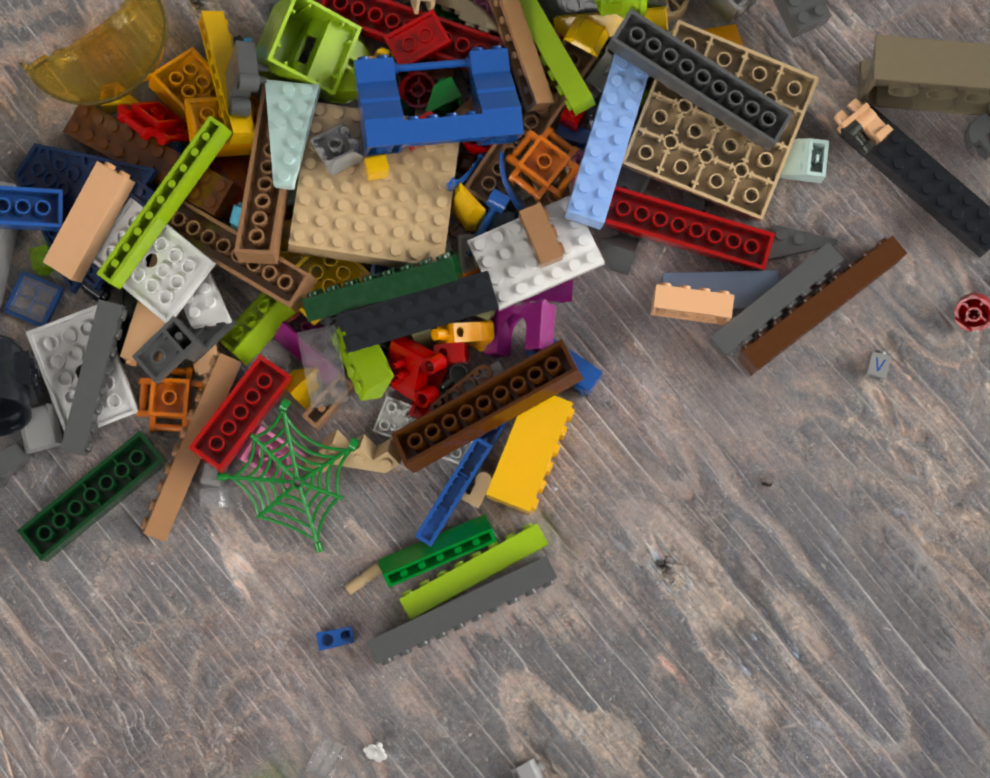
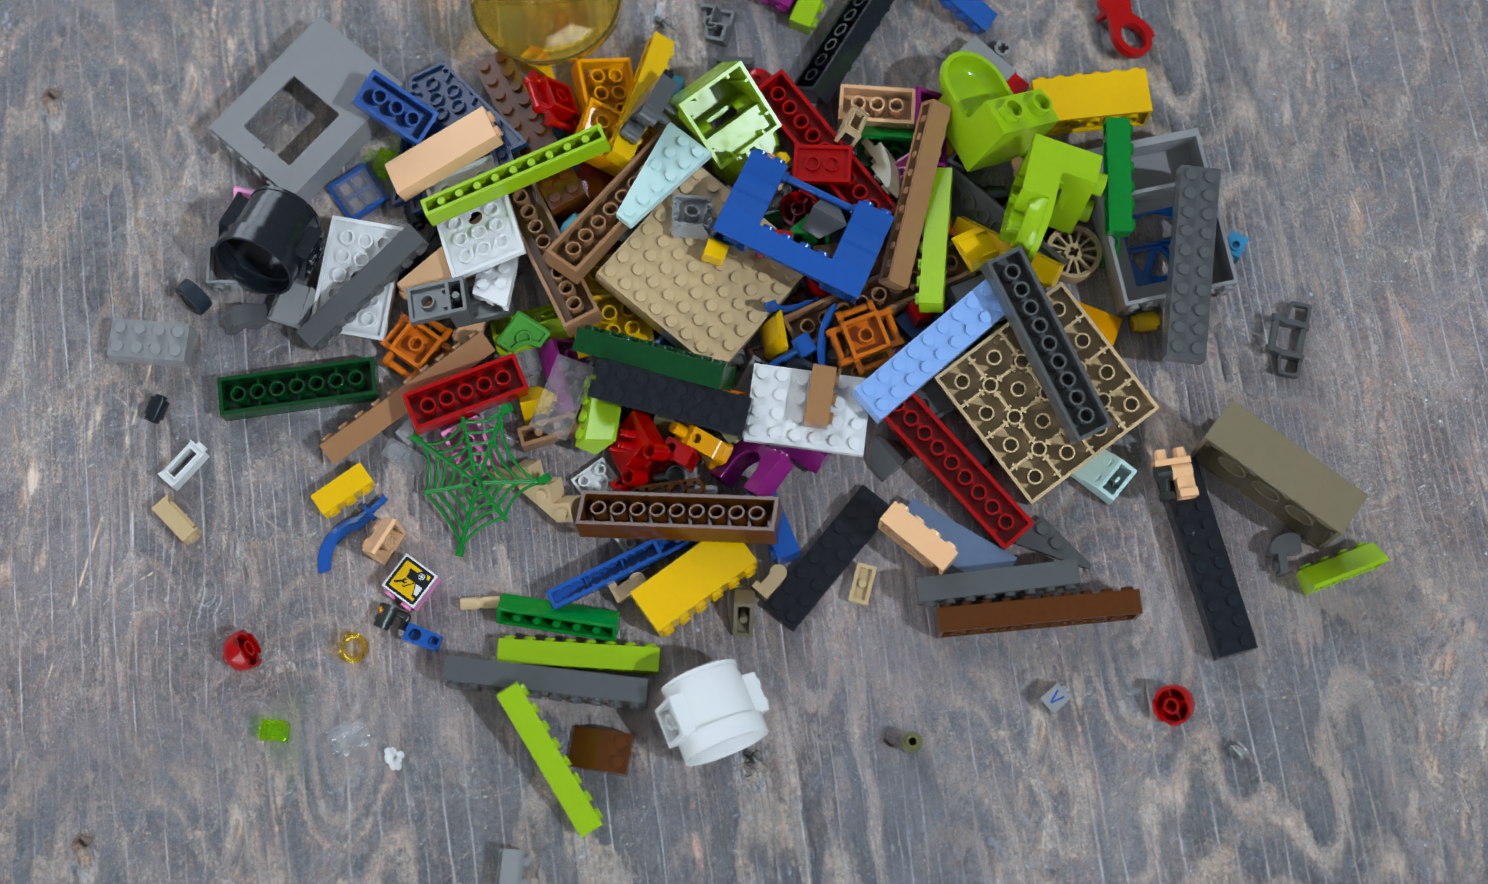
camera: 30 degrees right, 5 degrees down
(46, 606) = (192, 466): none -> white window
(61, 670) = (177, 520): none -> tan window
(187, 558) = (343, 491): none -> yellow brick
(189, 745) = (241, 651): none -> red cylinder
(208, 590) = (343, 529): none -> blue sword
(249, 578) = (384, 540): none -> light nougat slope
(255, 331) = (521, 332): none -> bright green tile
(272, 675) = (347, 637): none -> clear yellow piece
(292, 639) = (386, 615): none -> pearl dark grey piece
(295, 599) = (410, 583): none -> piece
(303, 427) = (512, 440): none -> clear brick
(451, 85) = (824, 219): none -> dark grey slope
(506, 671) = (549, 759): none -> lime brick
(541, 637) = (601, 750): none -> reddish brown slope
(585, 451) = (743, 612): none -> dark tan slope
(593, 406) = (771, 582): none -> tan leg
(616, 549) = (712, 712): none -> white cylinder
(624, 364) = (827, 558): none -> black plate
(666, 368) = (862, 584): none -> tan plate
(755, 15) = (1144, 321): none -> yellow brick
(782, 474) = (906, 747): none -> olive brick

